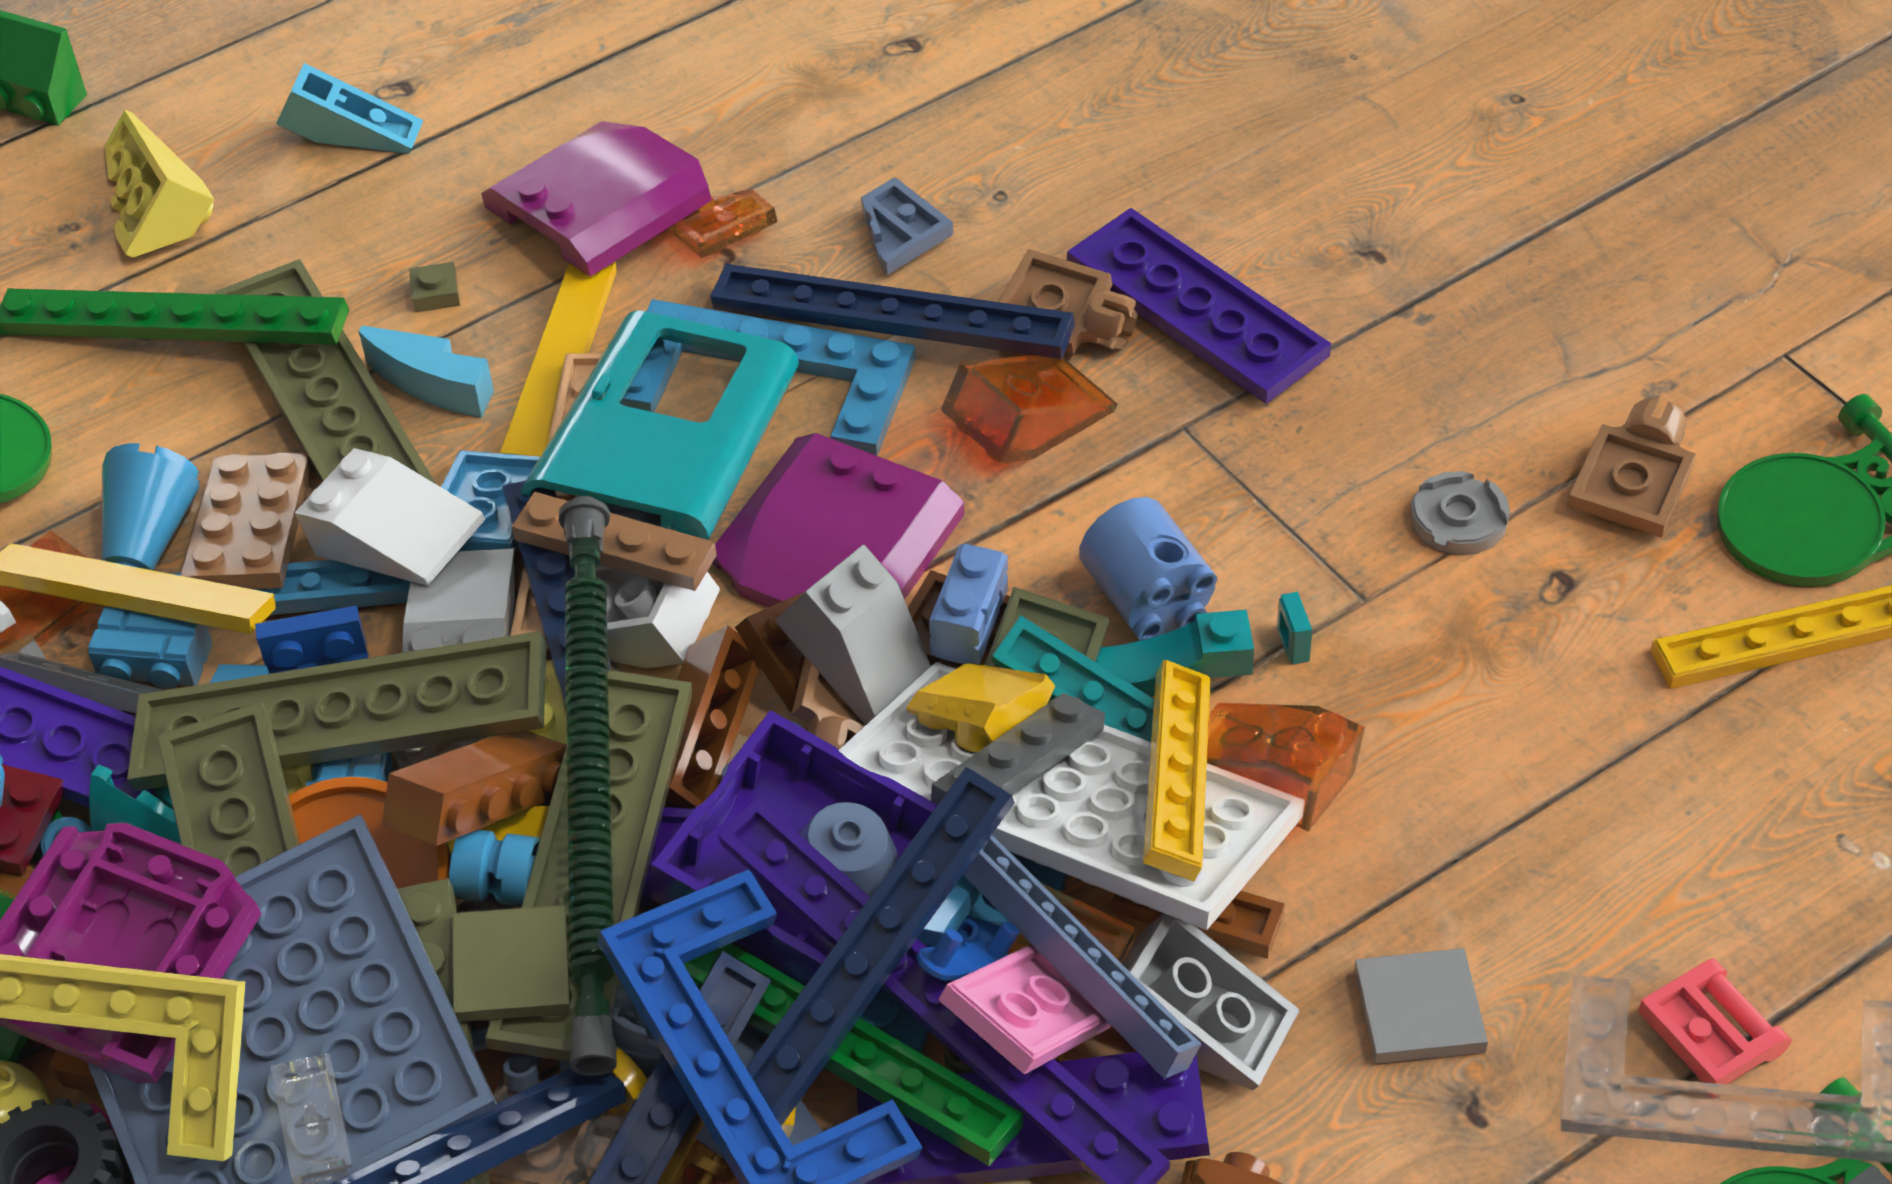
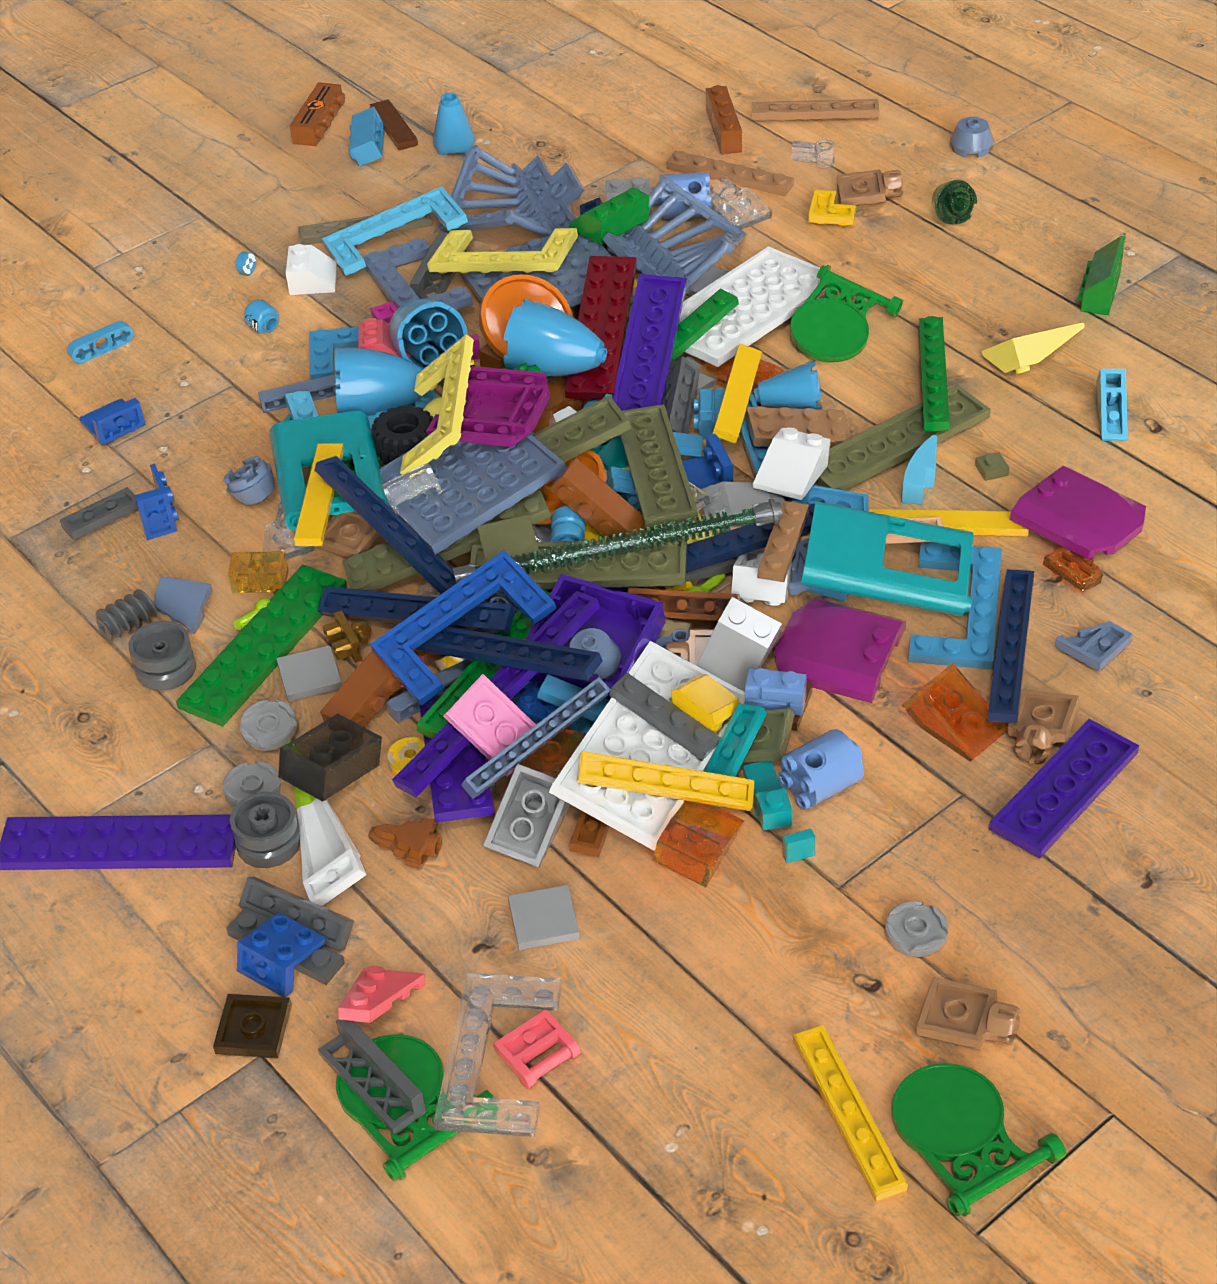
camera: 85 degrees right, 5 degrees down
(953, 961) = (514, 689): blue piece -> none

